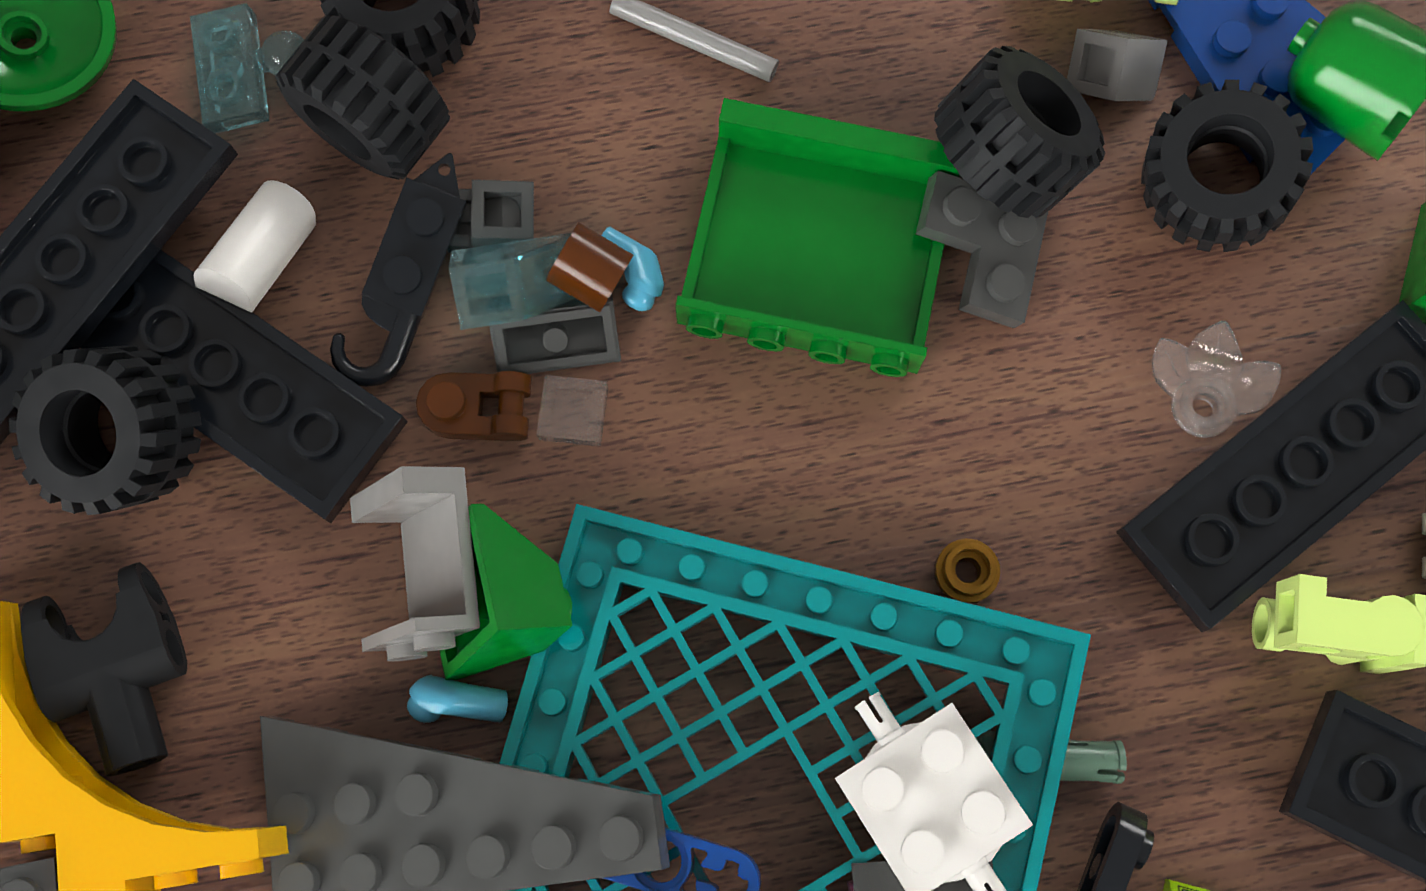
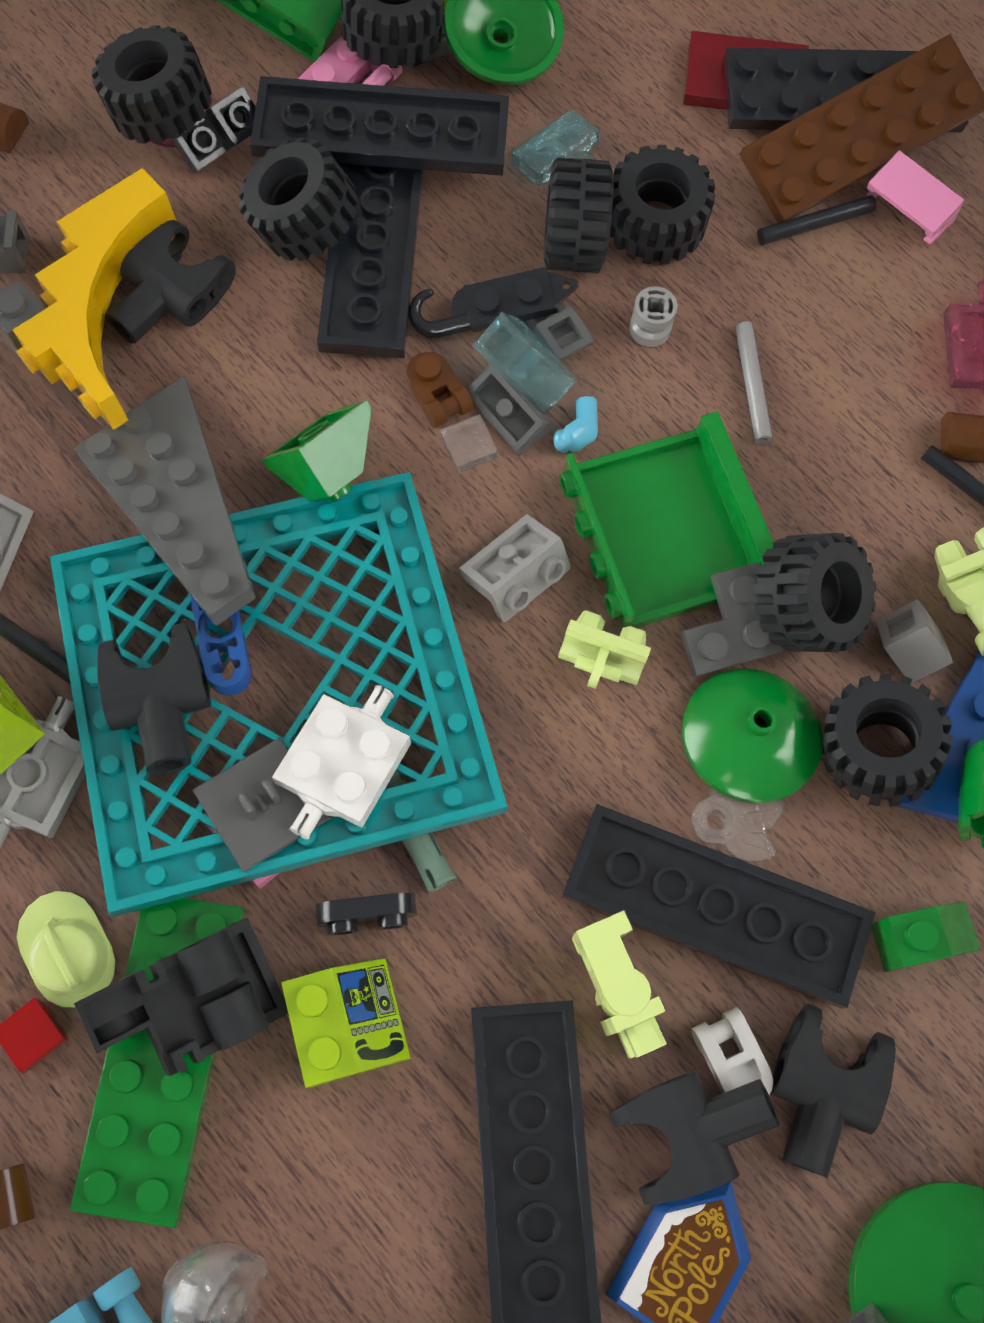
camera: 55 degrees right, 5 degrees down
(257, 246) = (456, 218): white brick -> none
(436, 556) = (358, 382): light grey panel -> none
(437, 697) = (249, 462): medium azure arm -> none
(546, 110) = (653, 316): none -> light grey wheel
(589, 267) = (558, 393): reddish brown brick -> none
(772, 447) = (517, 566): none -> light grey bracket
(944, 415) = (604, 652): none -> yellowish green hips
(981, 557) = (513, 712): pearl gold plate -> none
(1122, 337) = (739, 755): none -> green dish

